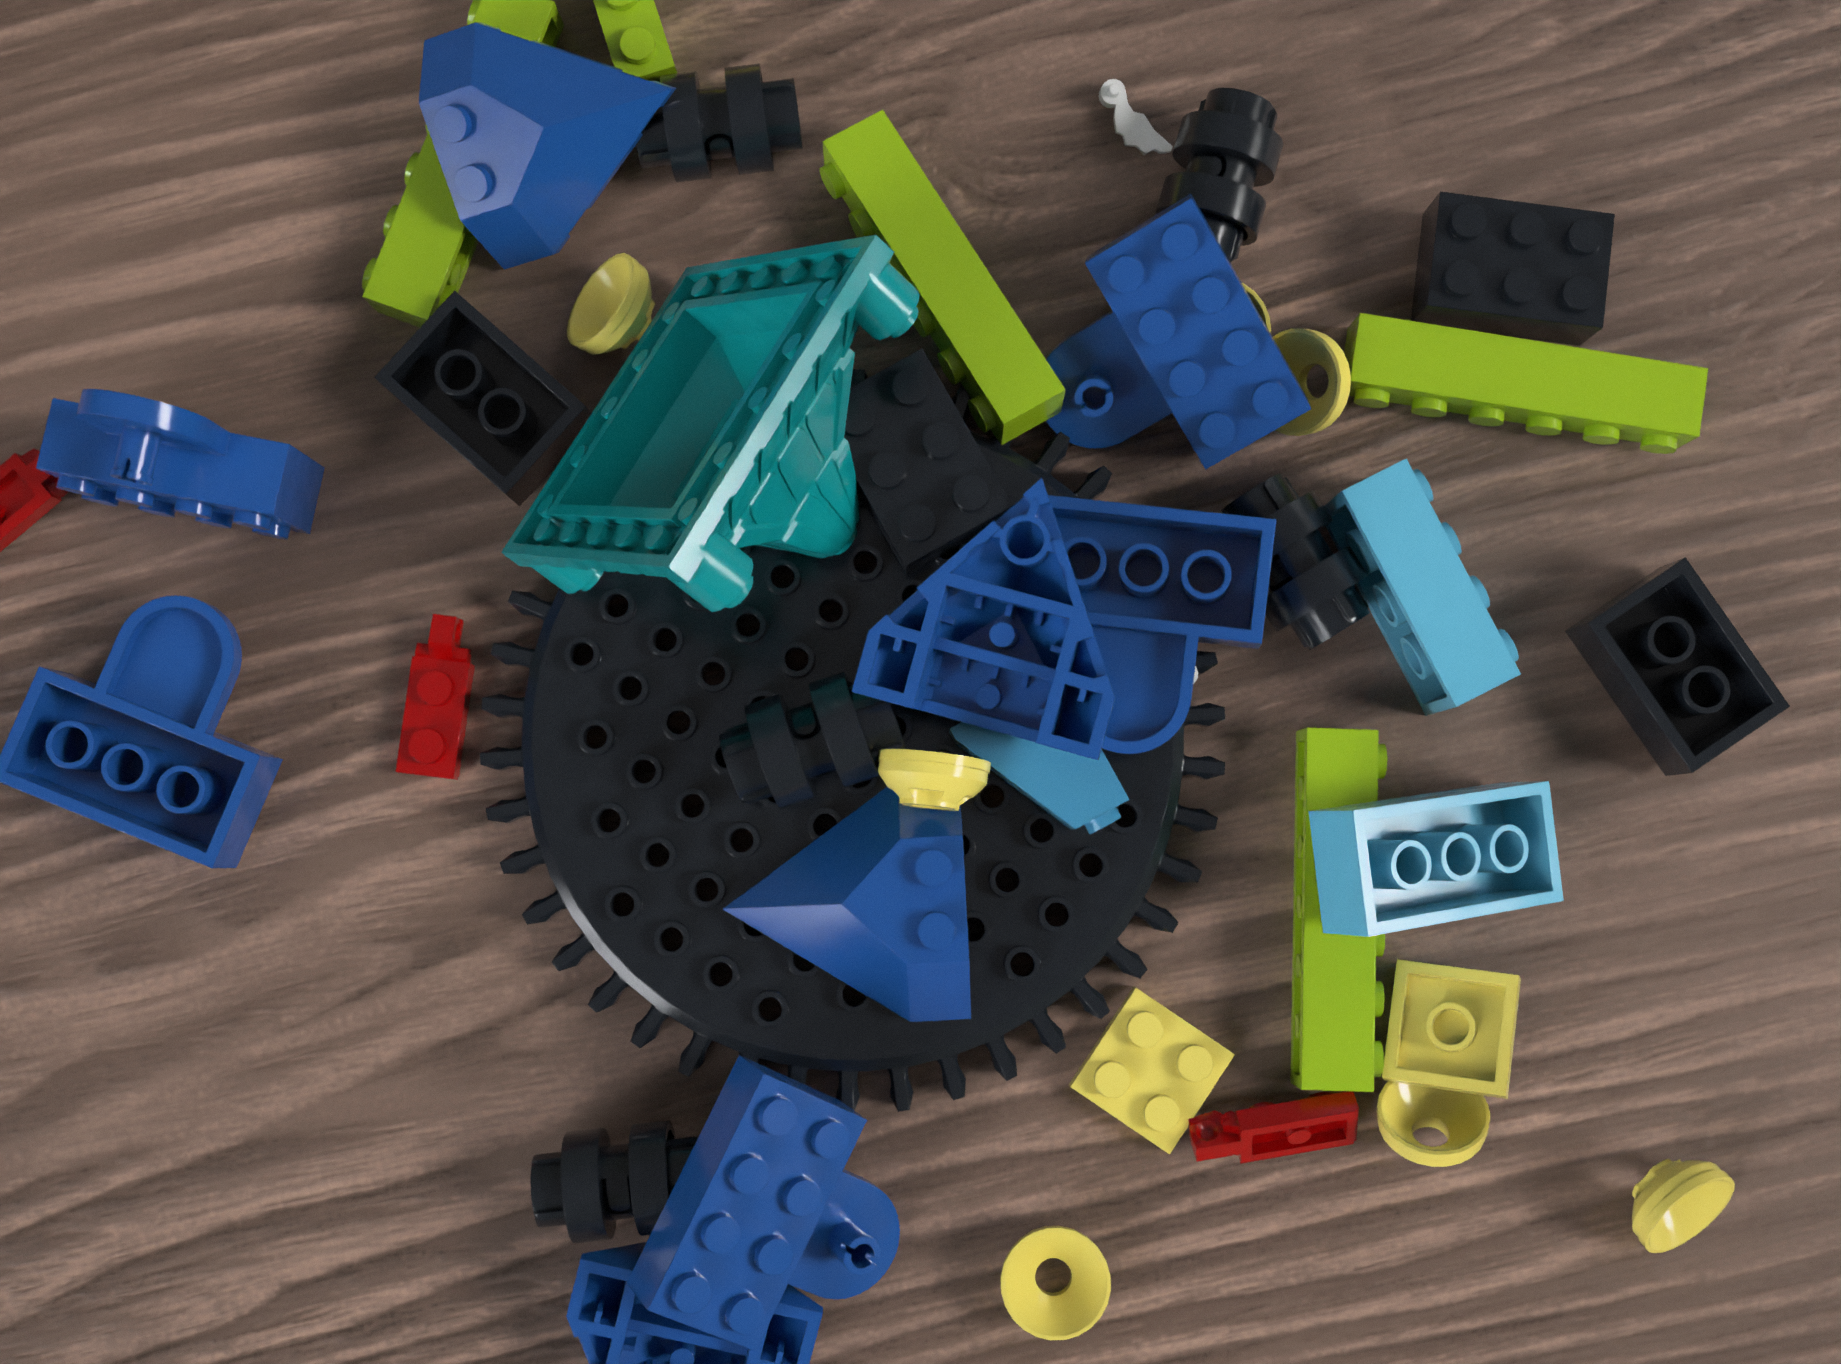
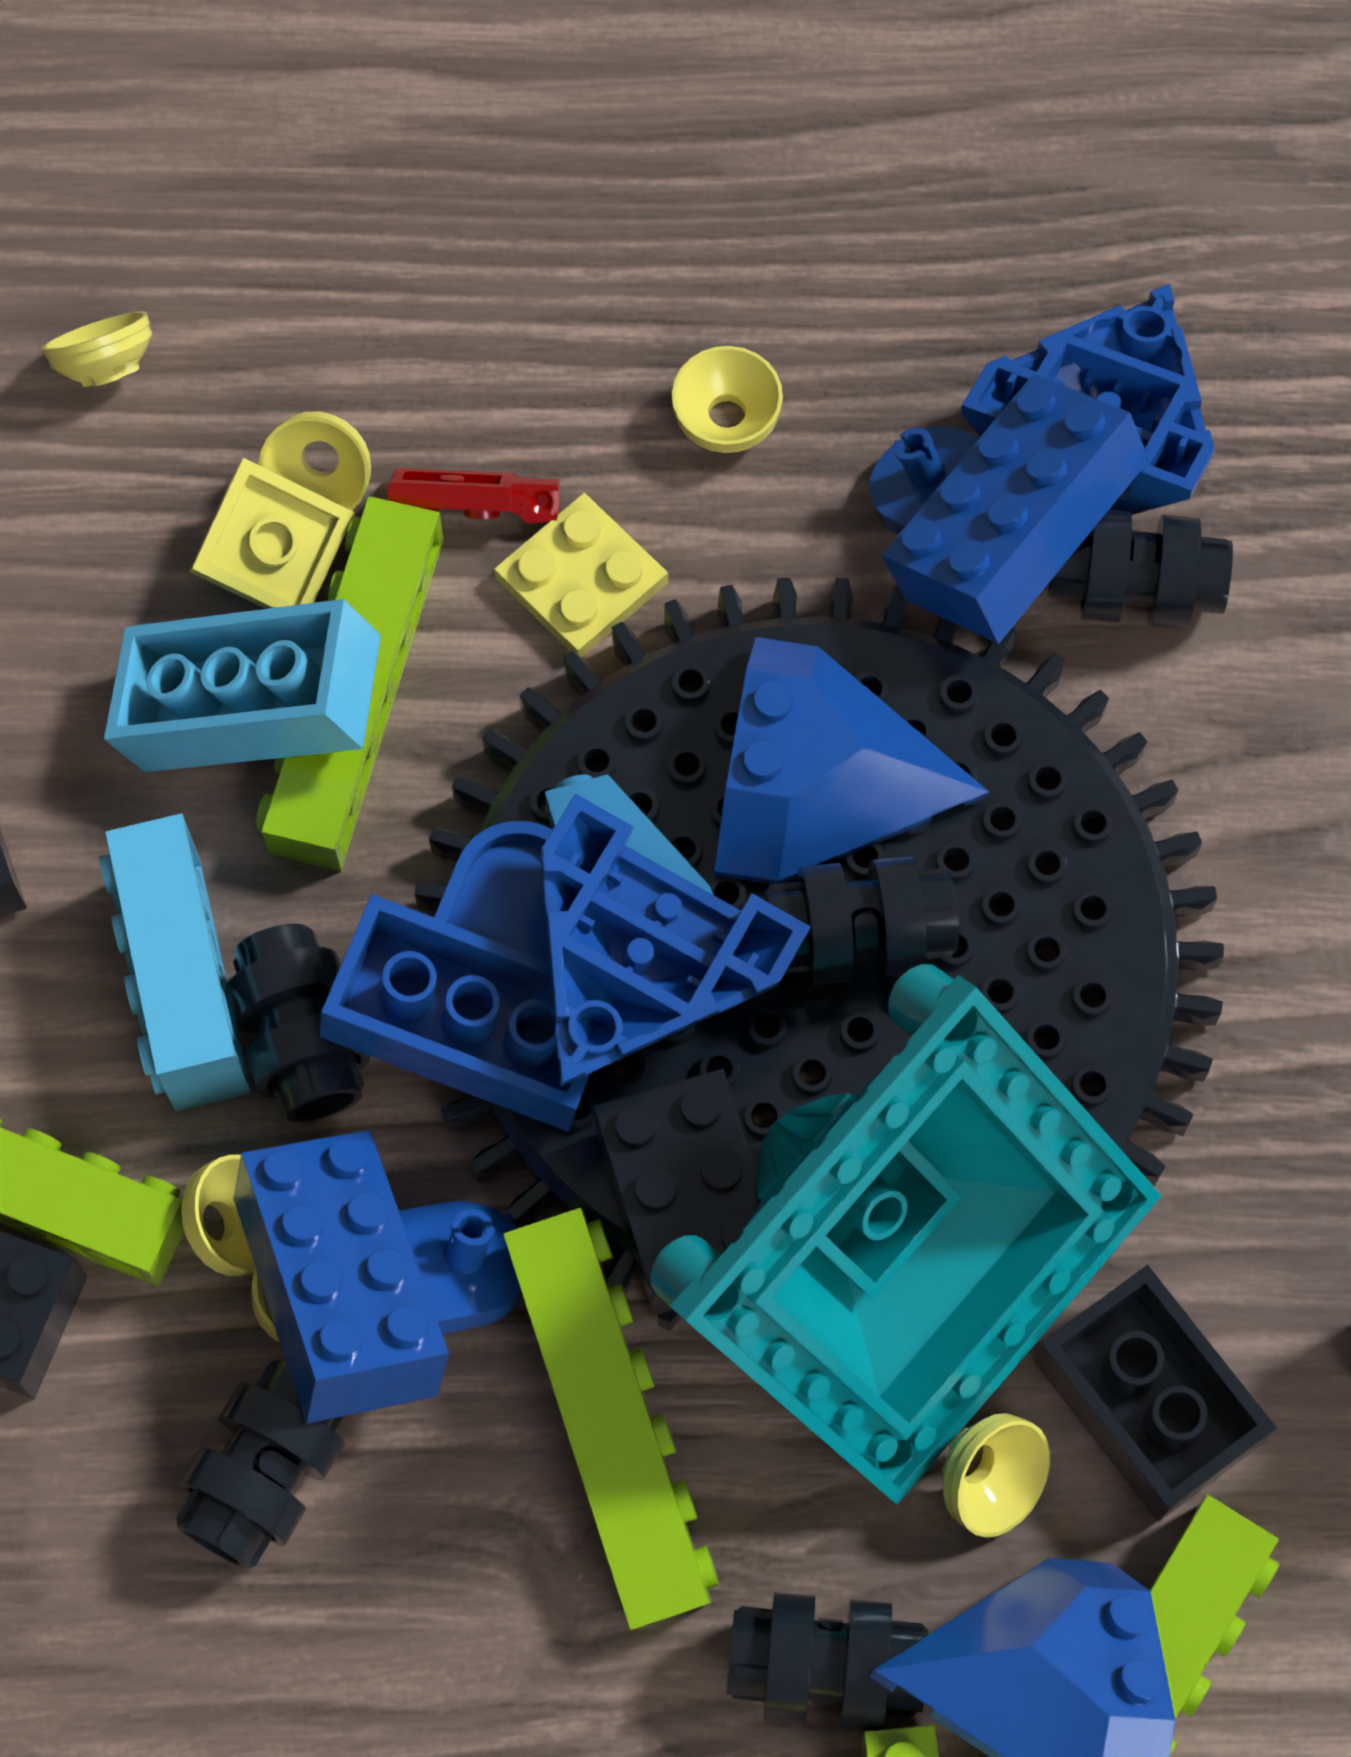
camera: 165 degrees left, 15 degrees down
(437, 703) = (1262, 1087): red hinge -> none
(932, 777) = (741, 850): light yellow piece -> none
(1131, 125) = (340, 1573): white piece -> none

